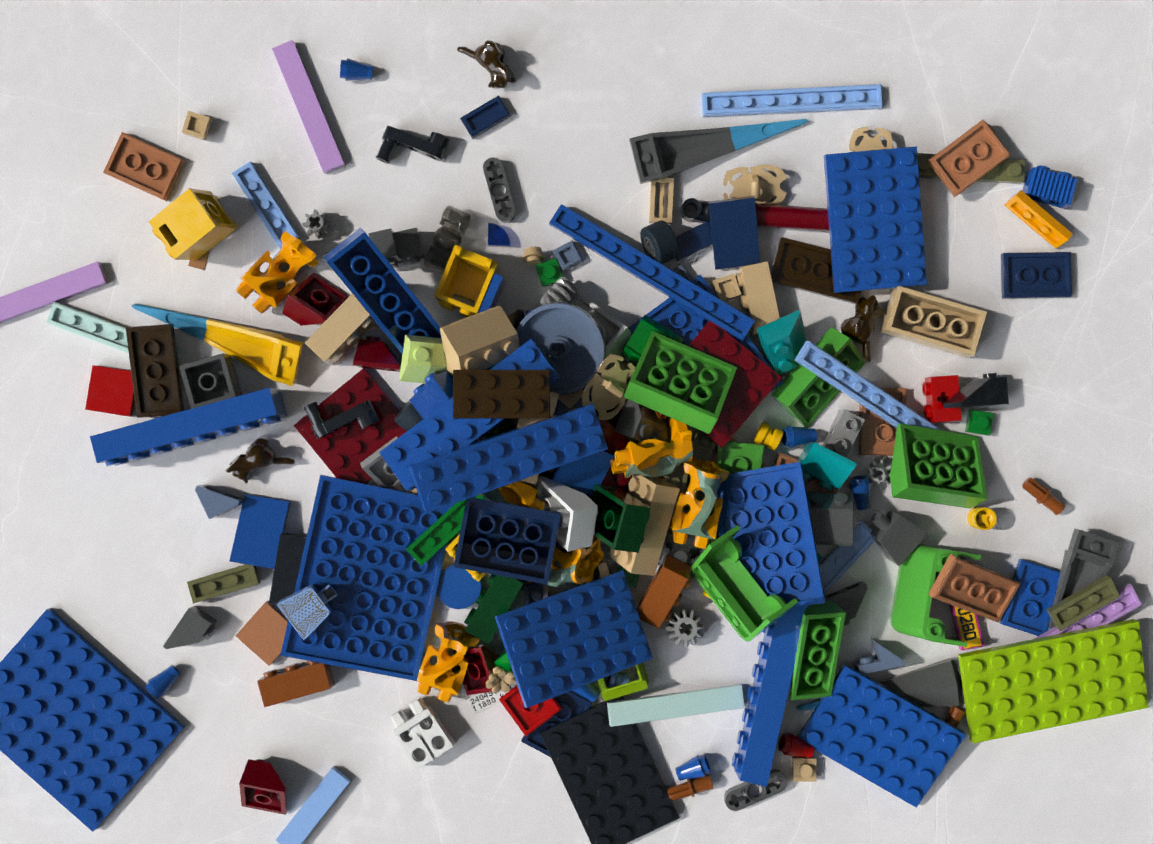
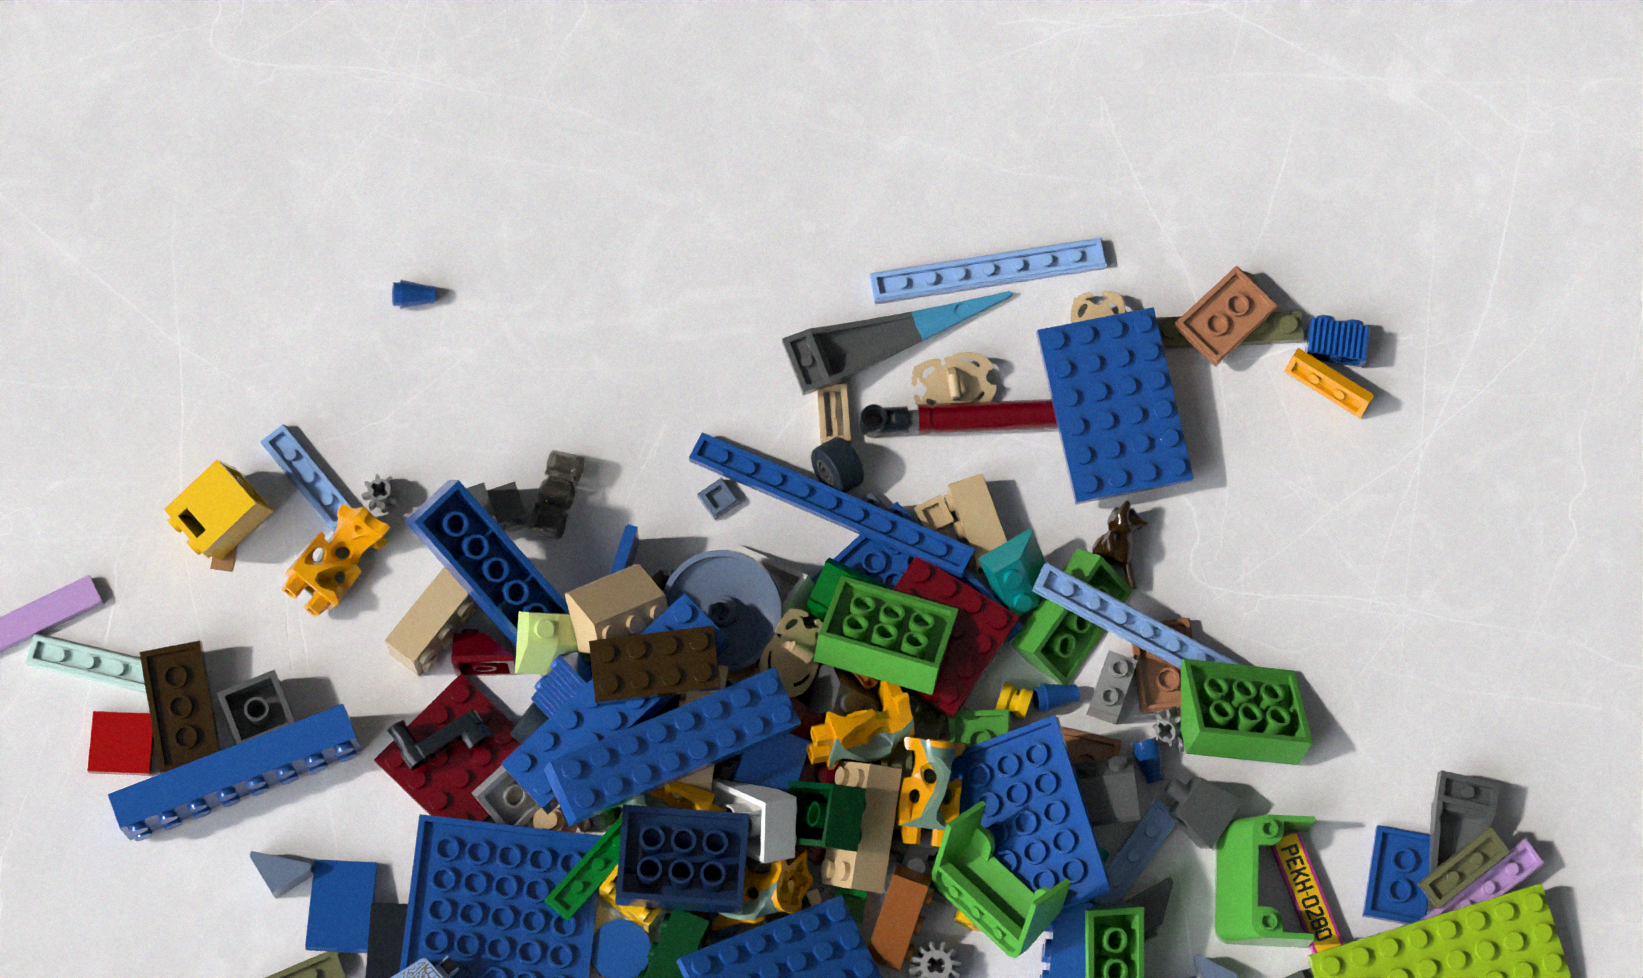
camera: 15 degrees left, 15 degrees down
(144, 166) = (141, 446): nougat tile -> none
(196, 125) = (208, 386): tan plate -> none
(256, 457) = (329, 805): dark brown animal -> none
(259, 349) = (323, 665): yellow plate -> none
(308, 106) = (354, 347): lavender tile -> none
(313, 301) = (384, 593): dark red slope -> none
(392, 137) = (525, 381): black beam -> none
(468, 277) = (587, 540): yellow container -> none
(485, 117) = (589, 334): dark blue tile -> none
(489, 176) = (618, 447): dark grey beam -> none
(491, 56) = (589, 259): dark brown animal -> none
(497, 236) = (622, 484): clear blue tile -> none
(533, 255) = (672, 502): tan plate -> none
(548, 272) = (696, 523): green plate -> none
(561, 291) = (714, 538): light grey gear -> none
(694, 240) = (885, 459): dark blue tile -> none
(734, 232) = (933, 442): dark blue tile -> none
(807, 269) = (1038, 480): dark brown plate -> none
(825, 466) = (1093, 725): teal slope -> none
(933, 322) = (1210, 527): tan brick -> none
(940, 387) = (1243, 610): red brick -> none
(974, 588) = (1315, 864): nougat tile -> none
(979, 422) = (1293, 652): green plate -> none
(981, 392) = (1291, 610): black slope -> none
(986, 518) = (1318, 771): yellow wheel -> none
(1036, 275) = (1339, 455): dark blue tile -> none
(1043, 496) = (1392, 737): dark orange axle -> none

